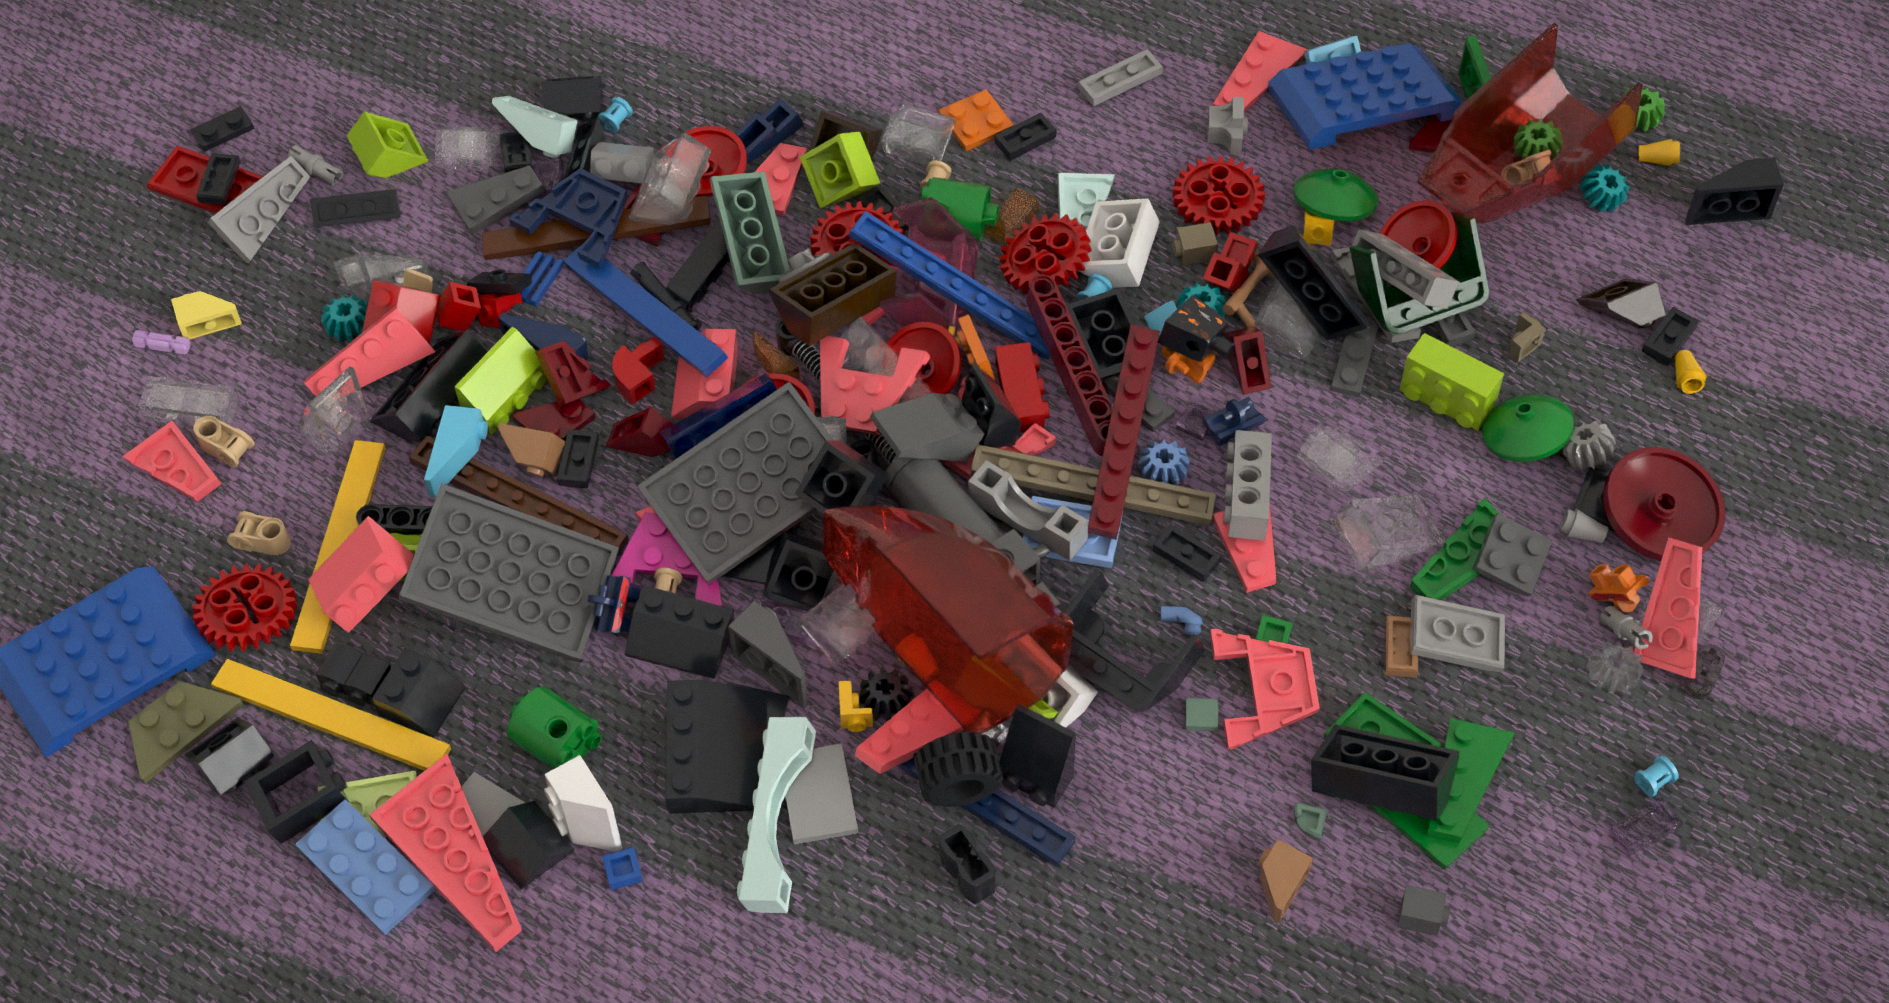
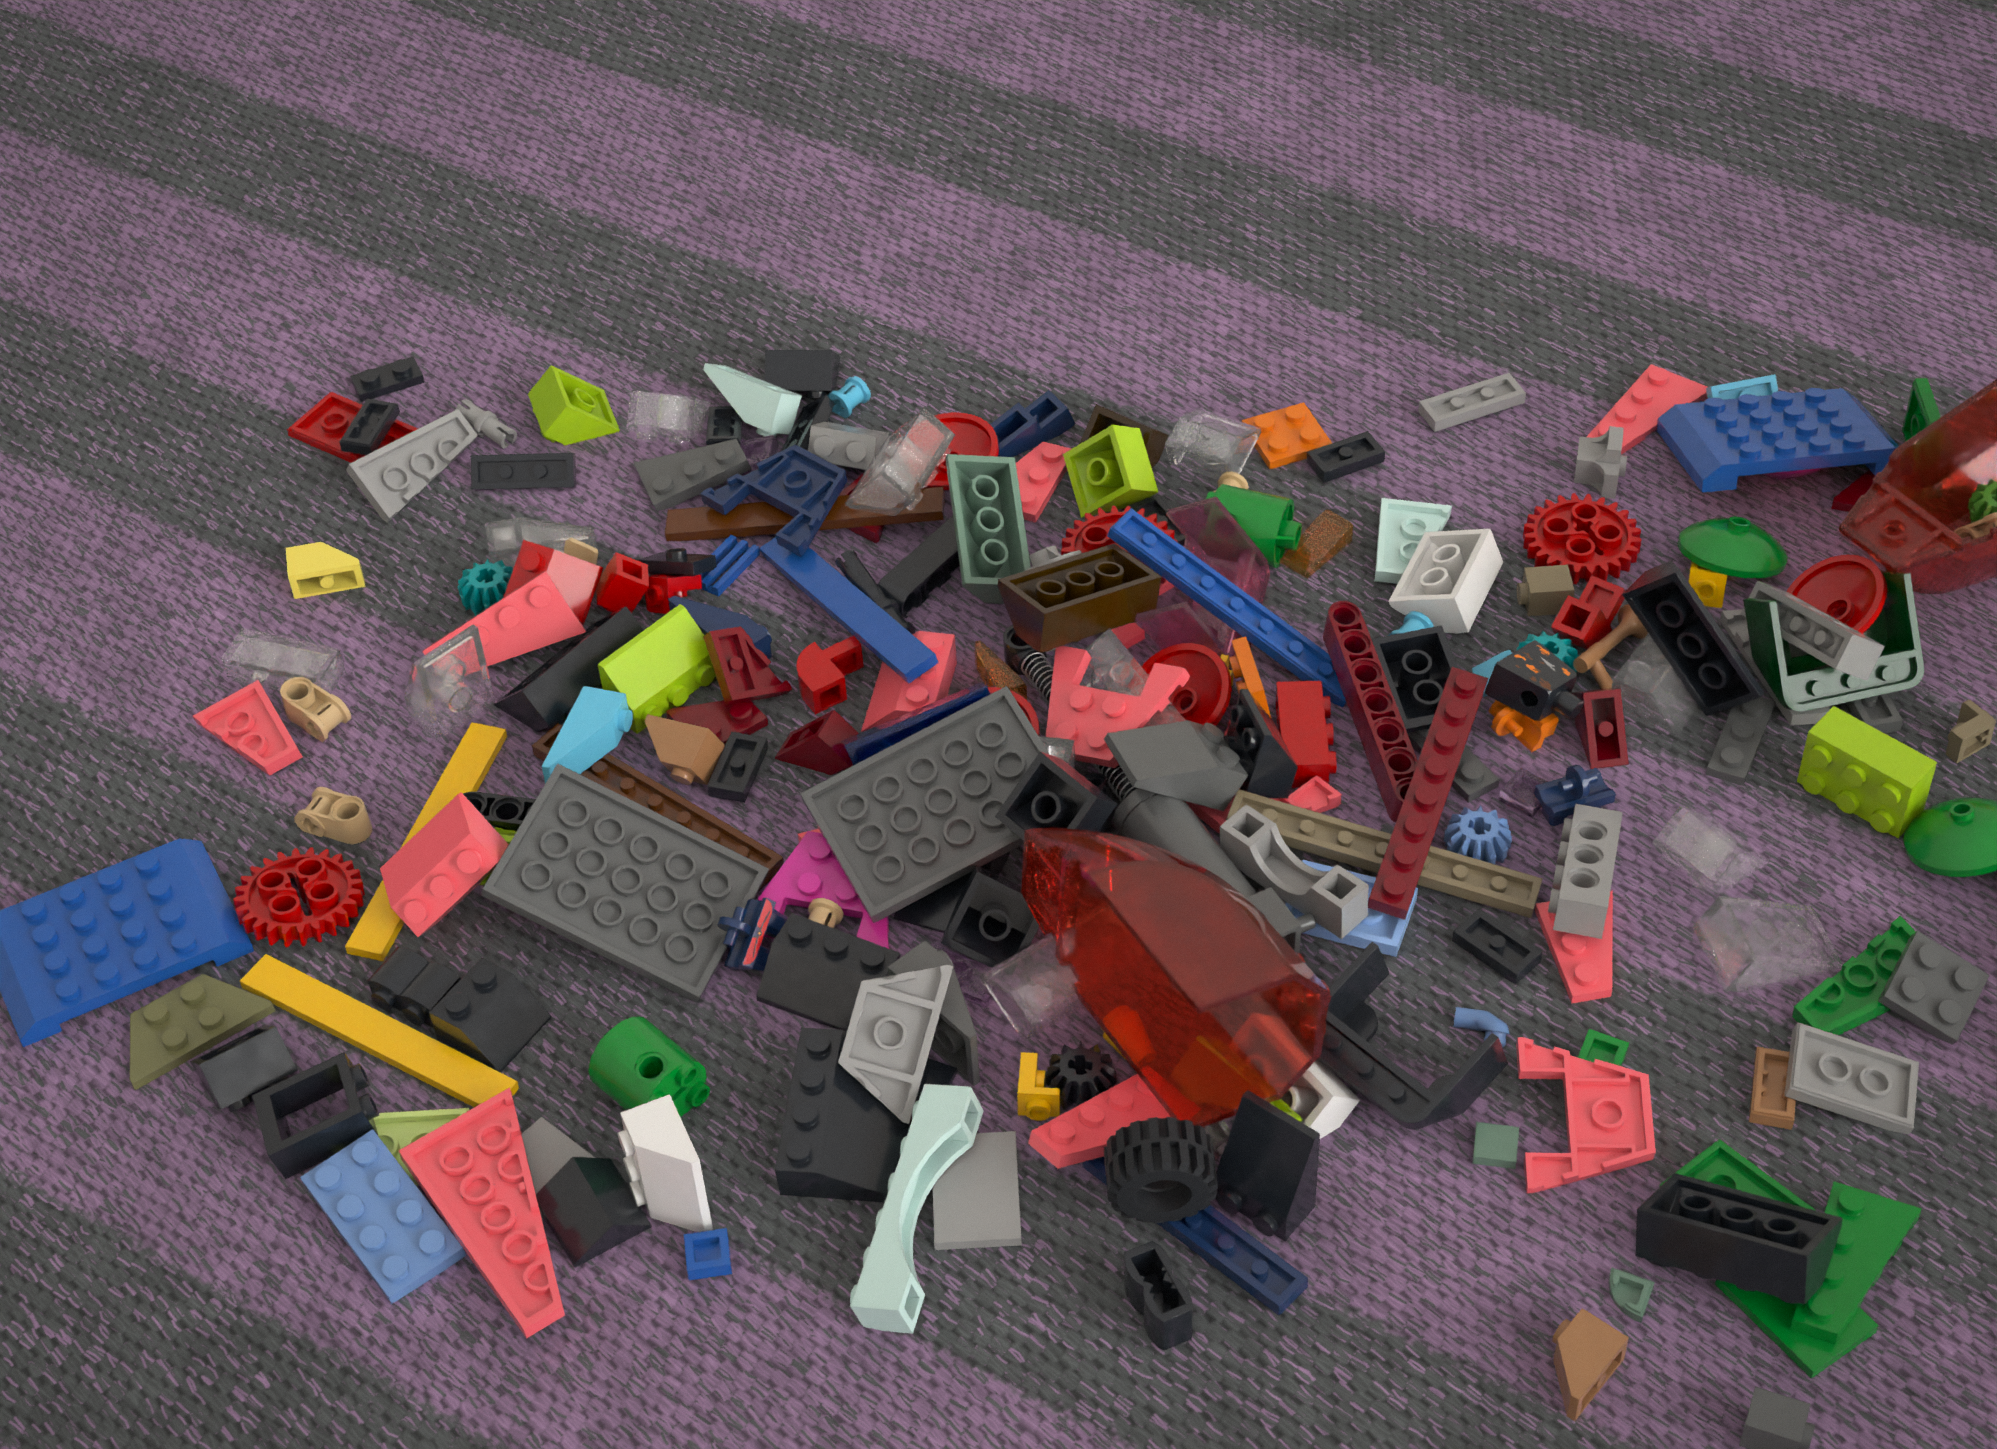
camera: 10 degrees right, 10 degrees down
(161, 342) = (266, 596): lavender axle -> none
(741, 681) = (894, 1034): none -> light grey wing
(1047, 248) = (1360, 574): red gear -> none

